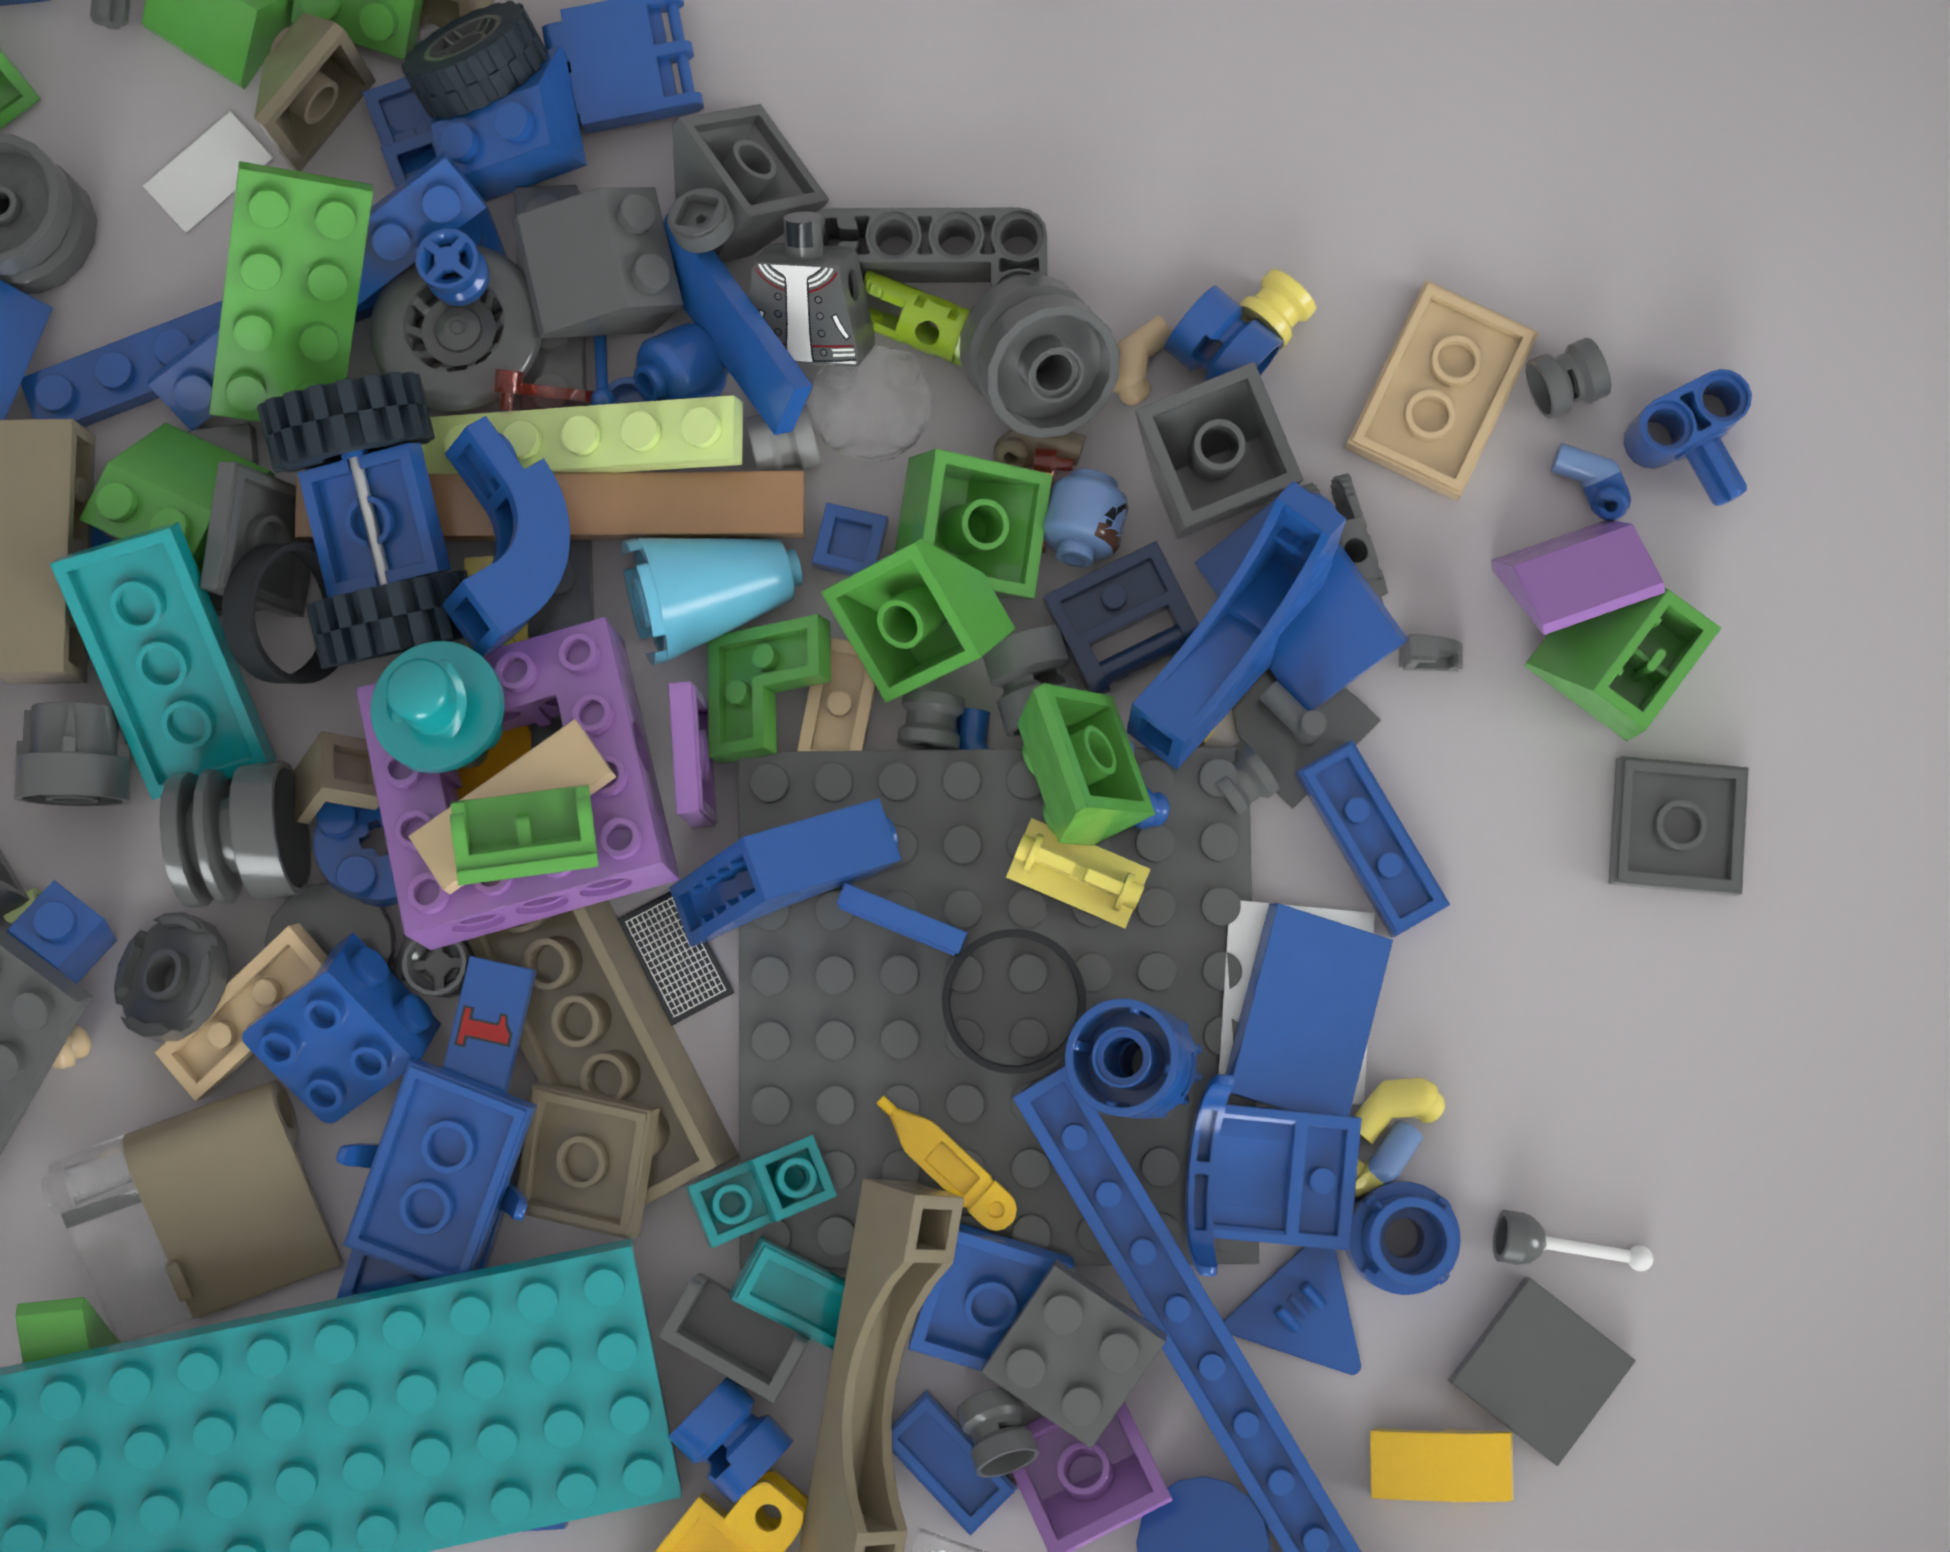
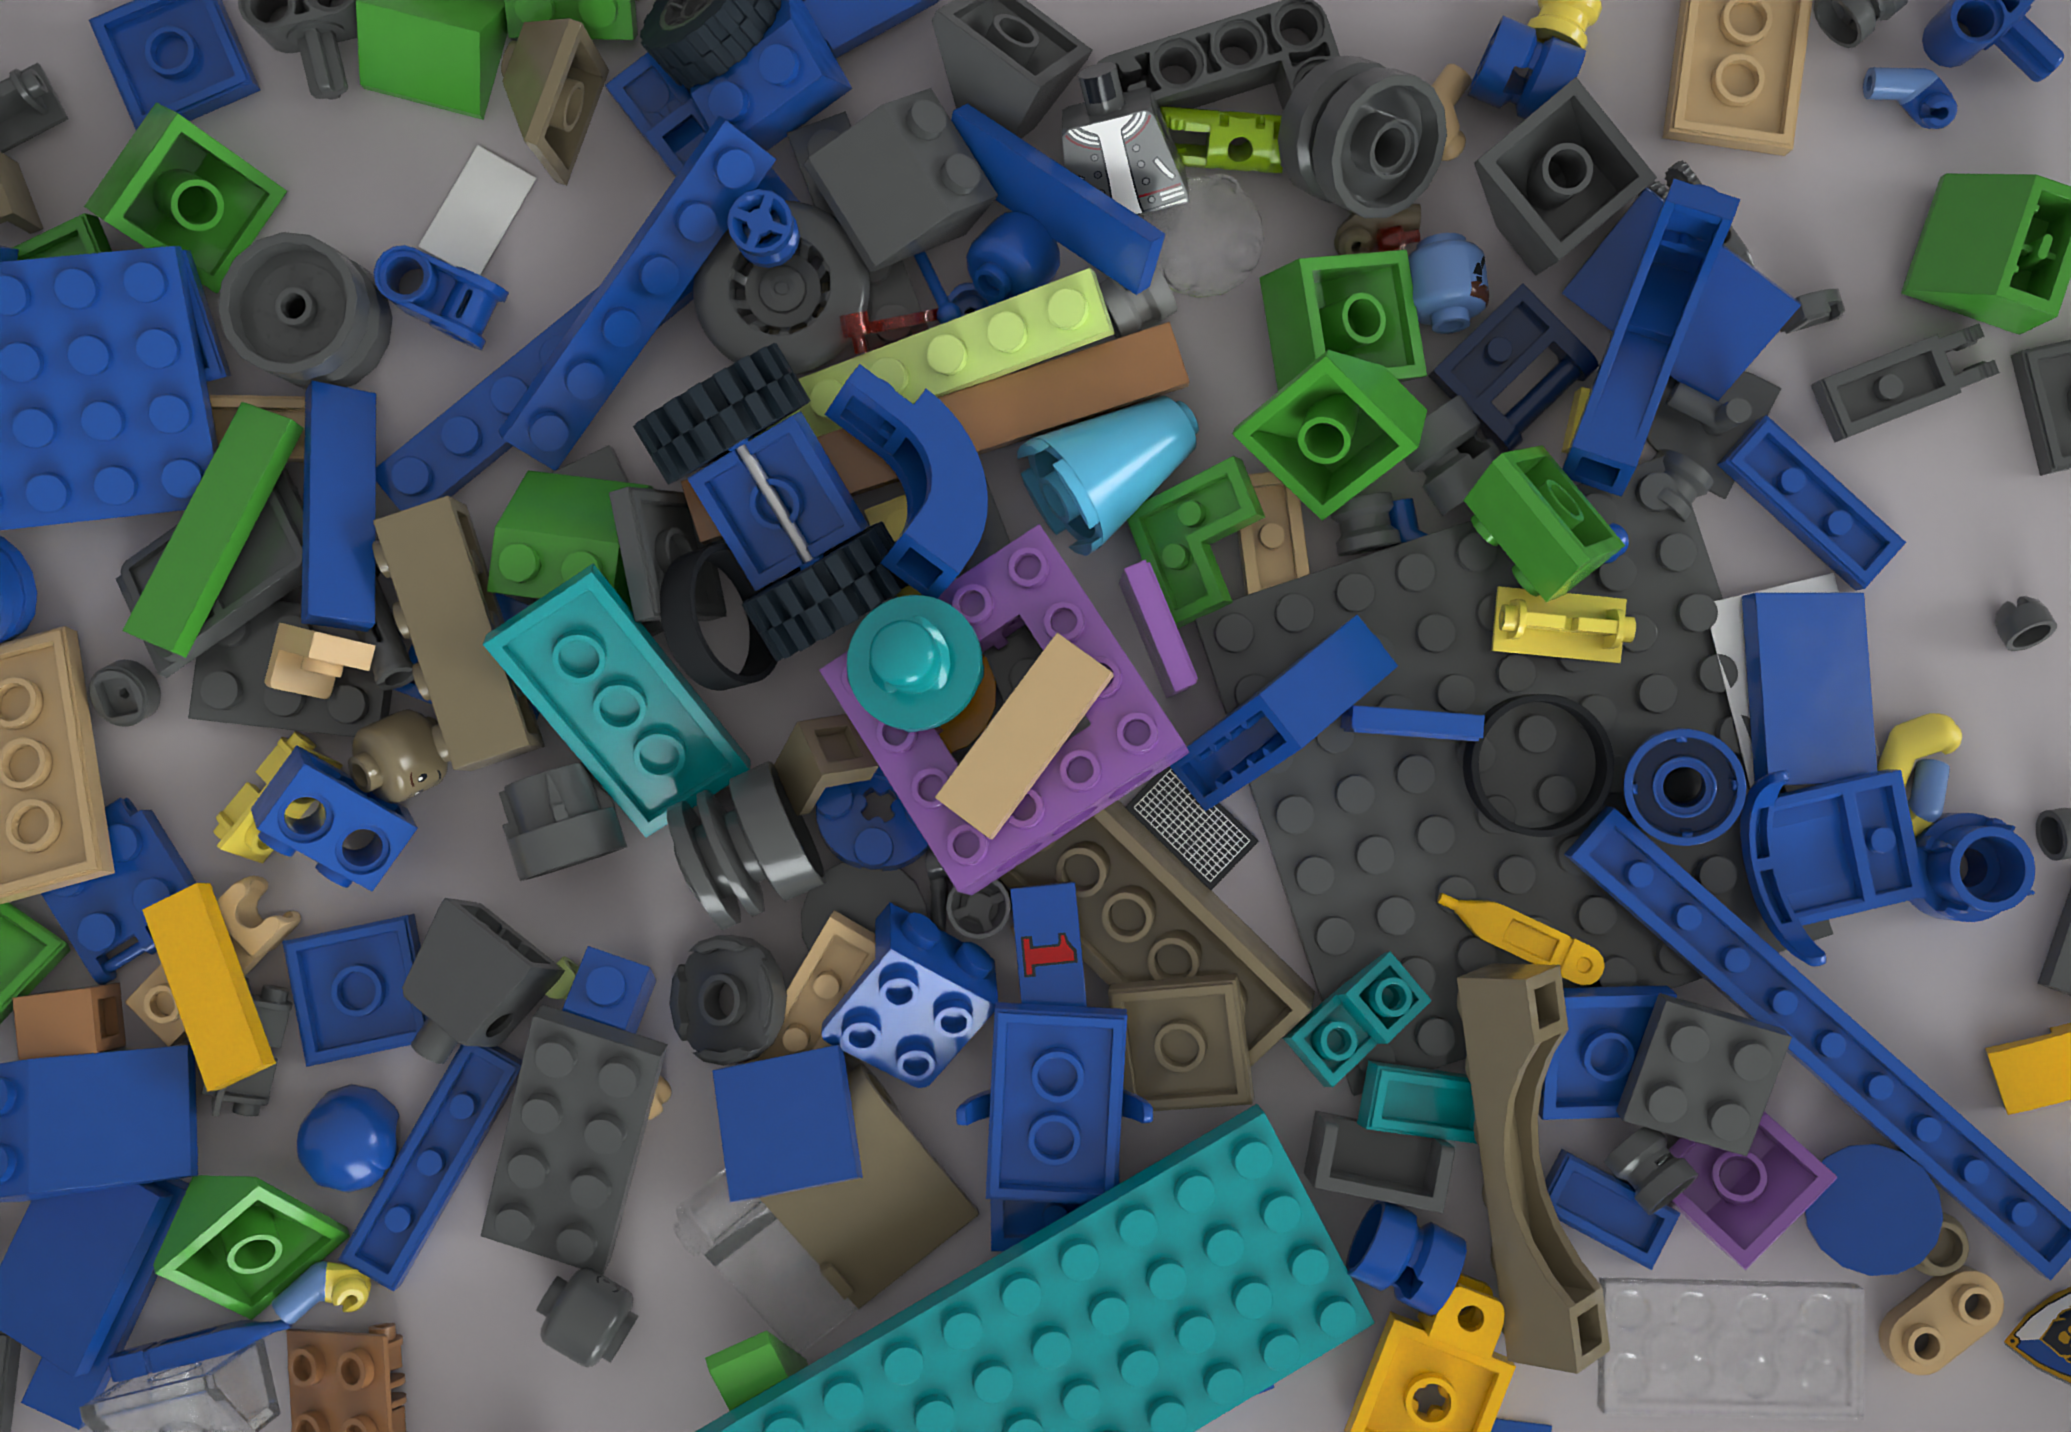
camera: 25 degrees left, 5 degrees up
(146, 239) = (448, 298): none -> blue piece
(179, 1110) = (787, 1124): none -> blue tile
(288, 286) = (615, 300): bright green plate -> none
(523, 834) = (1057, 760): bright green hinge -> none
(701, 220) = (994, 105): dark grey tile -> none
(849, 539) = (1229, 376): blue plate -> none
(1302, 1312) = (1886, 966): blue piece -> none
(1492, 749) = (1897, 383): none -> dark grey hinge
(1540, 1021) = (2025, 624): none -> dark grey hinge
(1580, 575) = (1939, 187): medium lavender slope -> none

